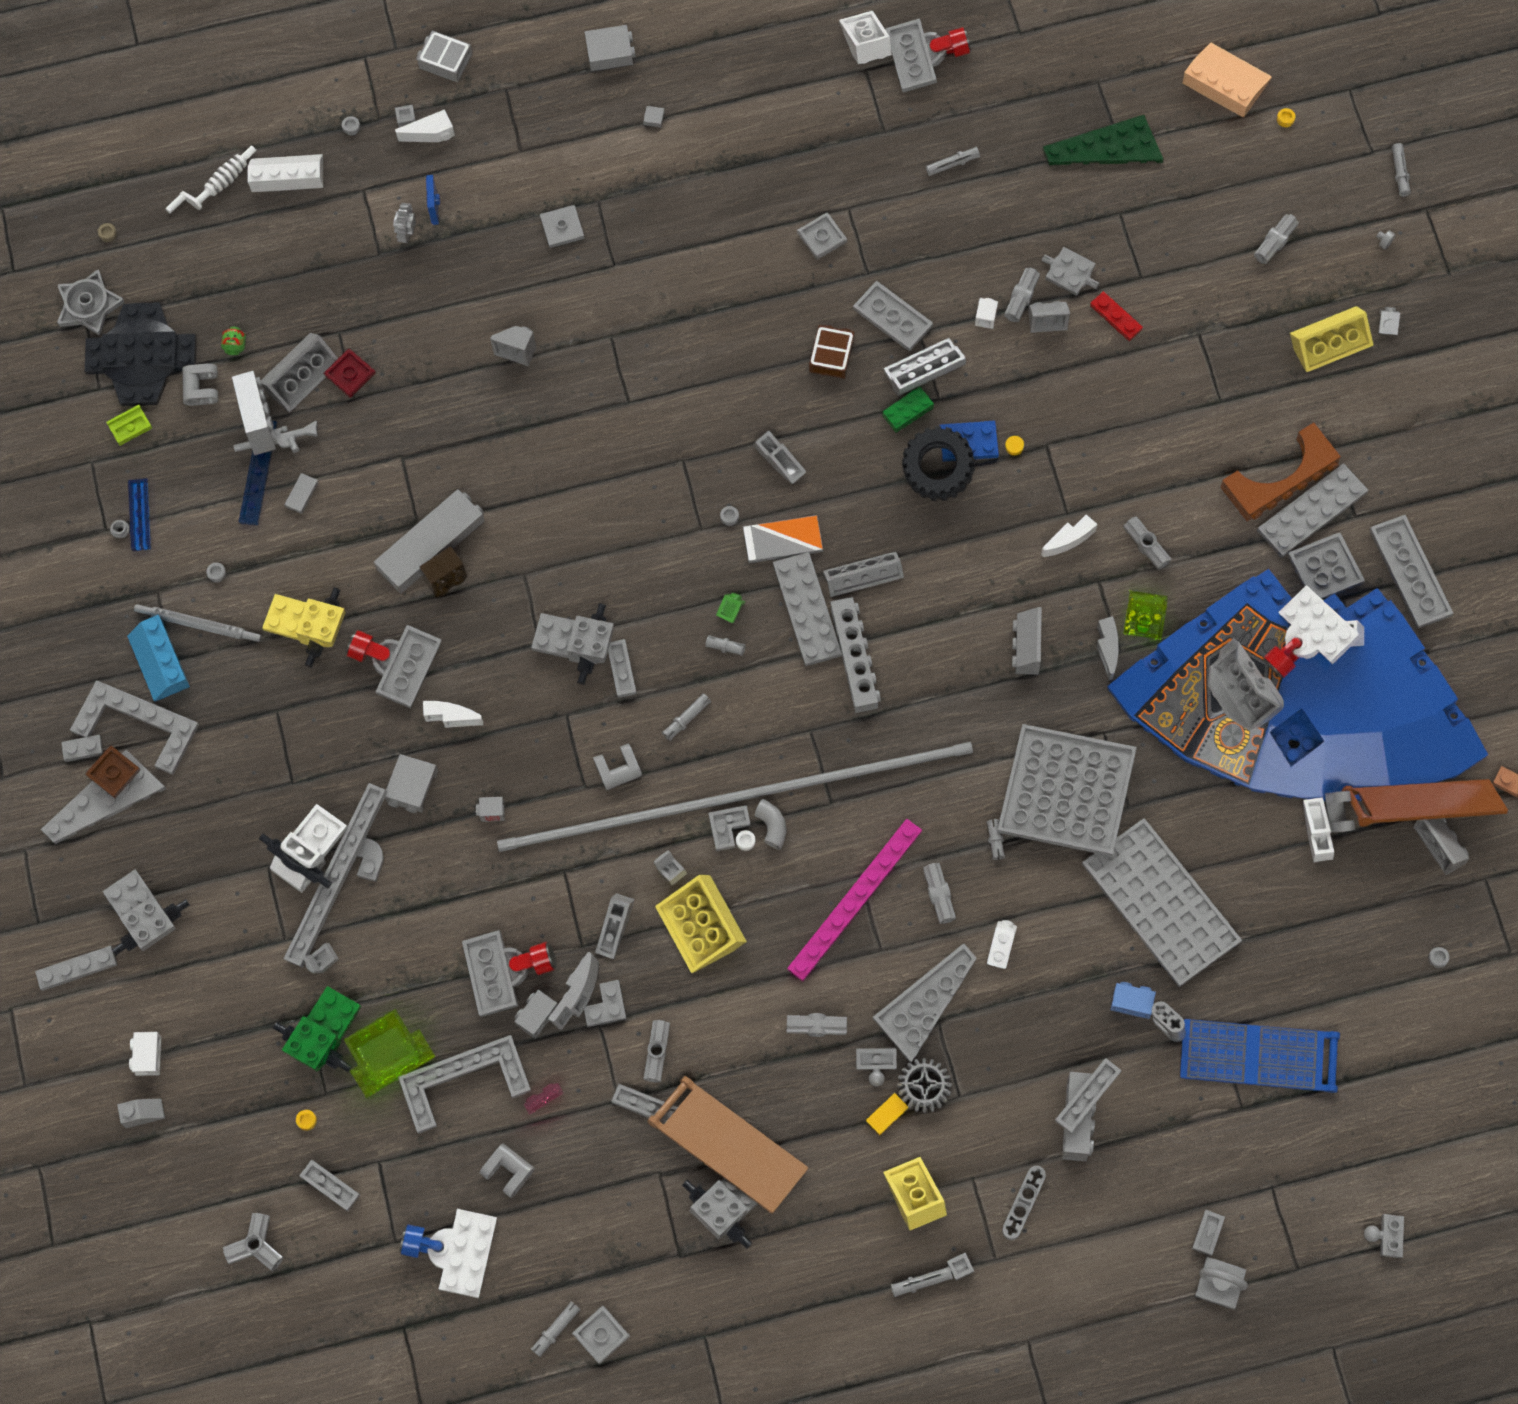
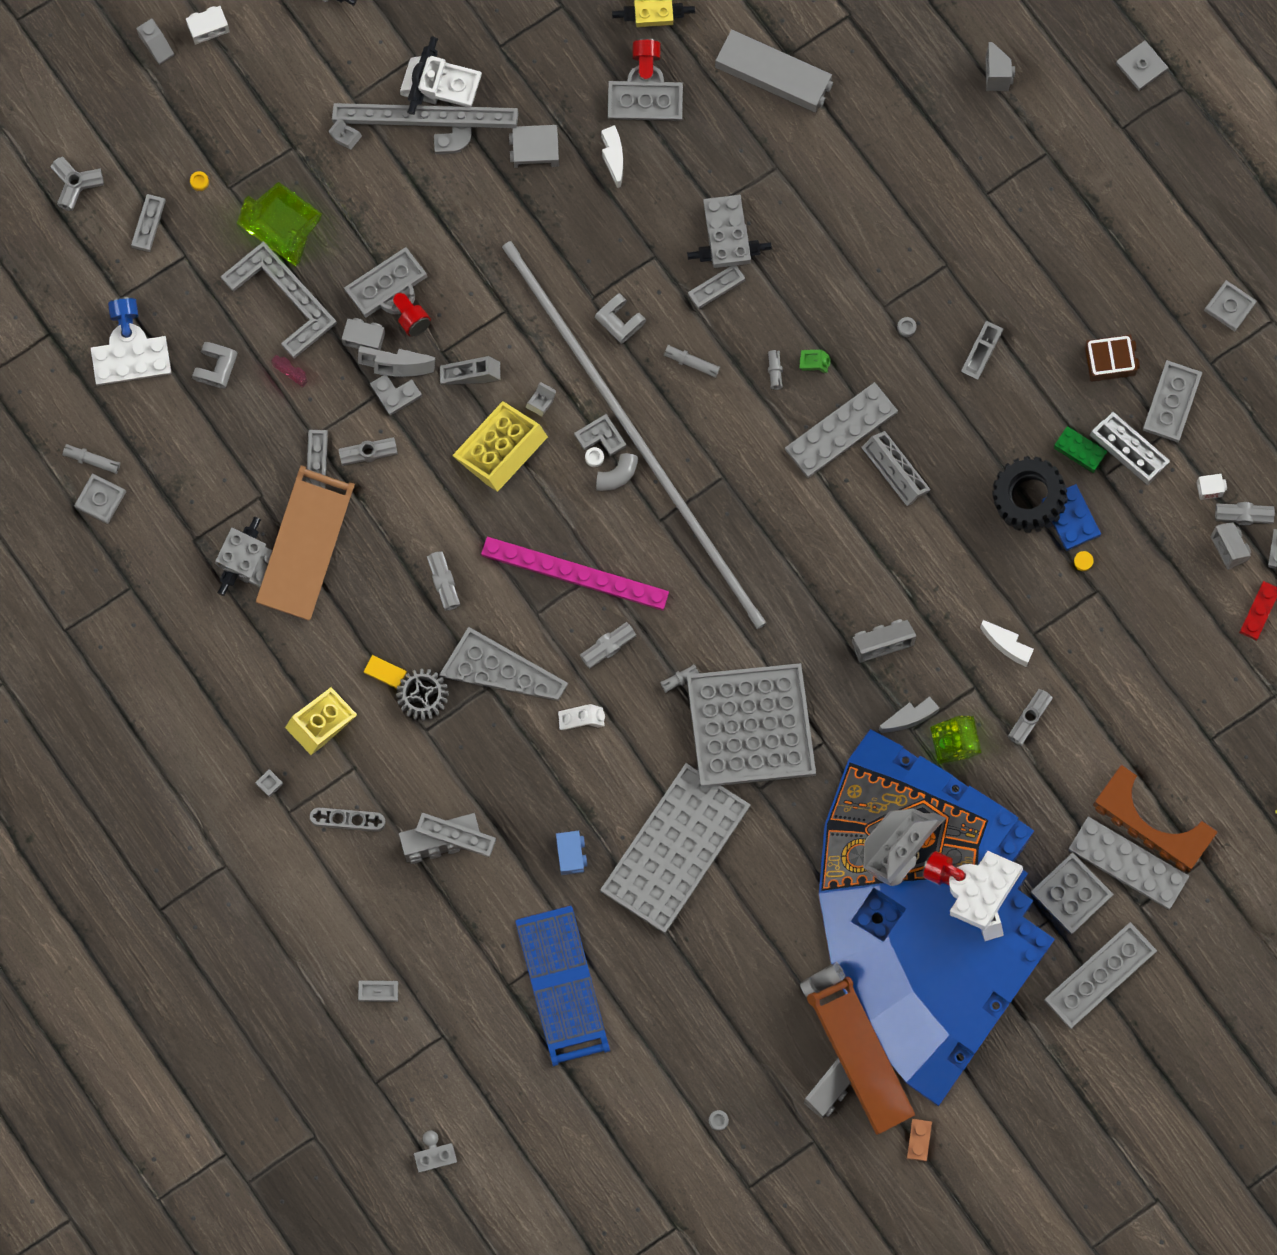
camera: 65 degrees right, 5 degrees up
(319, 1034) = (275, 161): green piece -> none
(443, 572) = (745, 94): dark brown brick -> none
(491, 809) = (537, 224): light grey brick -> none
(782, 539) = (902, 383): tile -> none
(861, 700) = (848, 458): light grey brick -> none
(876, 1059) = (430, 644): light grey plate -> none
(922, 1281) = (231, 737): light grey pin -> none
(1173, 1020) = (554, 892): light grey connector -> none
(1221, 1283) = (337, 1016): light grey tile -> none
(1318, 830) = (801, 969): white slope -> none

